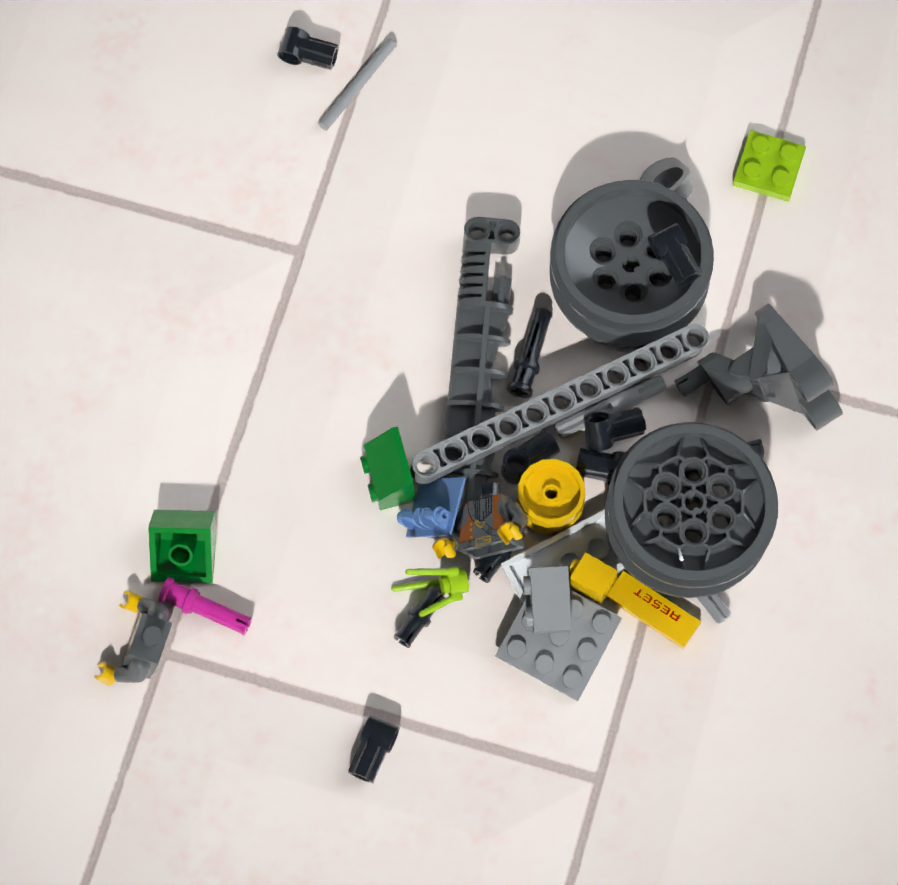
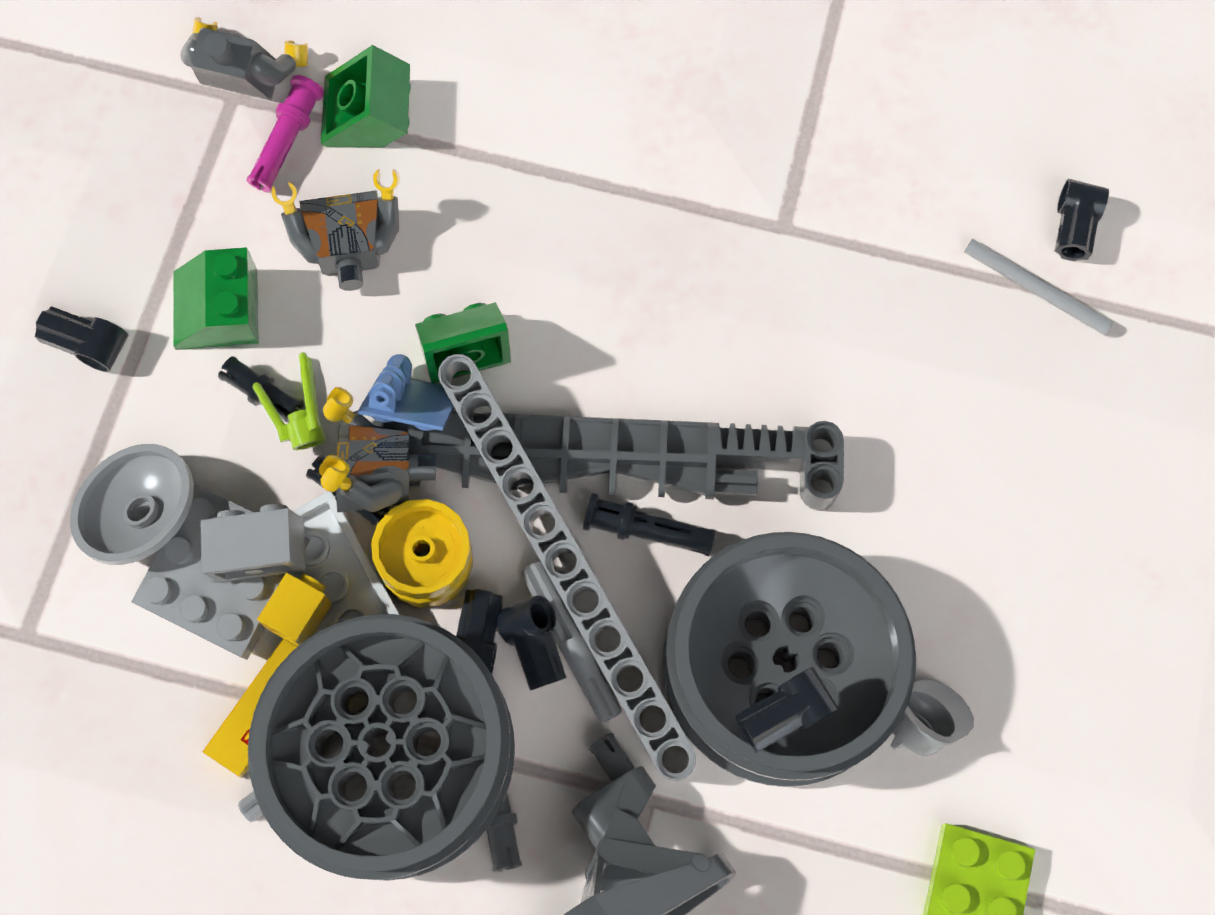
camera: 80 degrees right, 0 degrees up
(294, 556) = (344, 230): none -> torso
(346, 653) = (216, 300): none -> green slope
(489, 700) = (132, 504): none -> light grey dish
(538, 448) = (492, 528): black piece -> none

